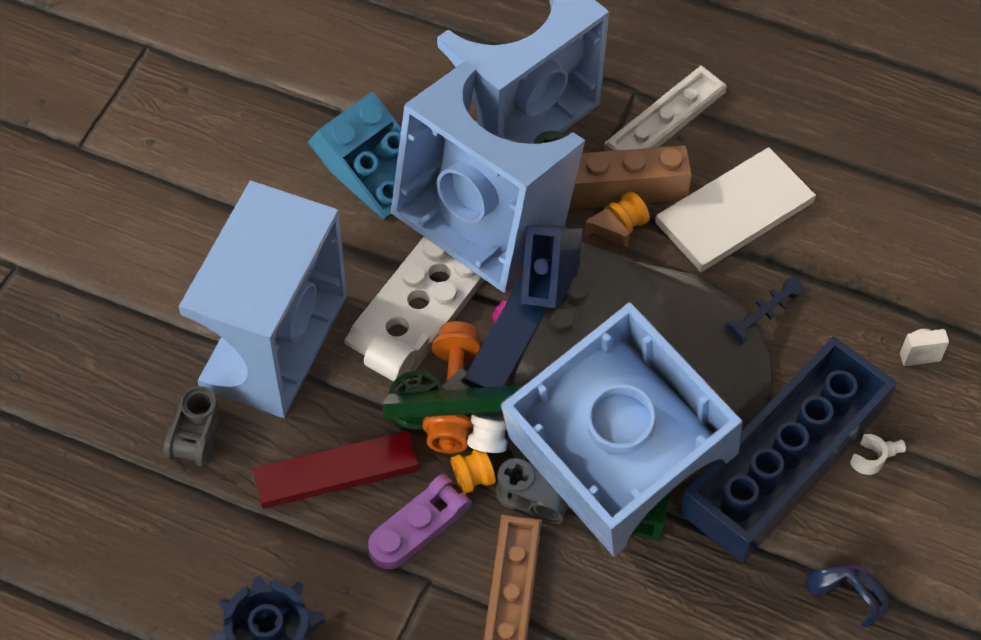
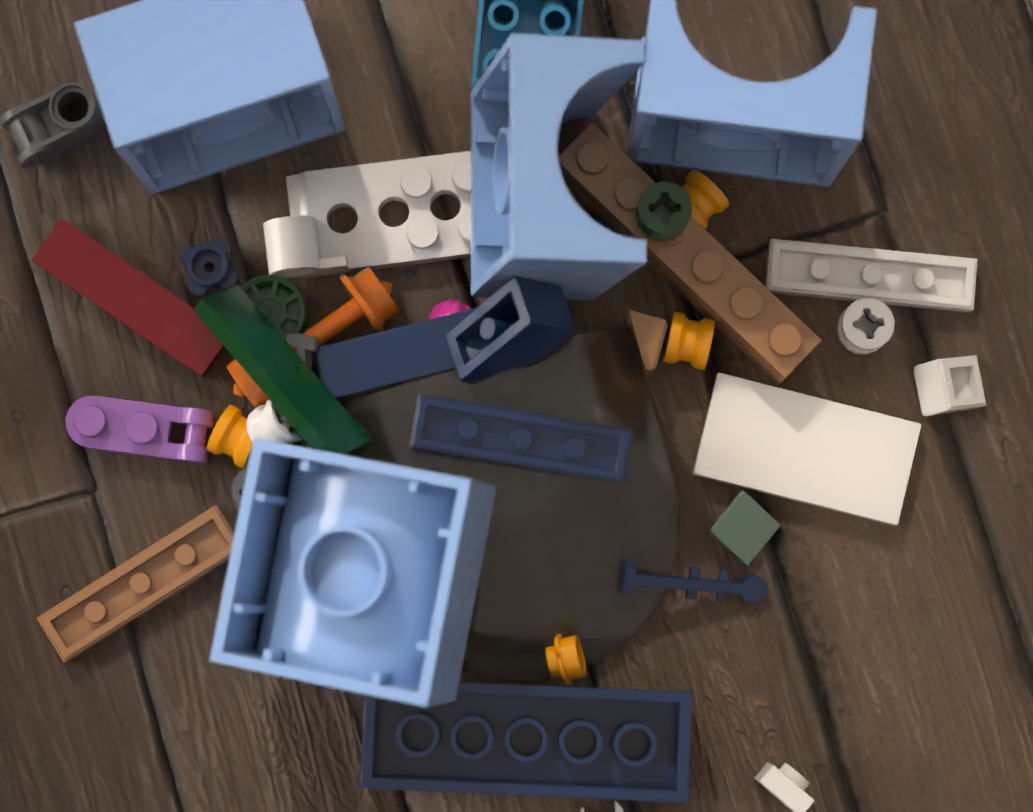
camera: 50 degrees right, 25 degrees up
(358, 405) = (197, 257): none -> dark blue plate
(639, 286) = (521, 438): none -> dark blue tile
(698, 140) = (855, 329): none -> white wheel
(753, 266) = (743, 528): none -> sand green slope
(757, 125) = (949, 385): none -> white slope
(757, 392) = (566, 659): none -> light orange plate

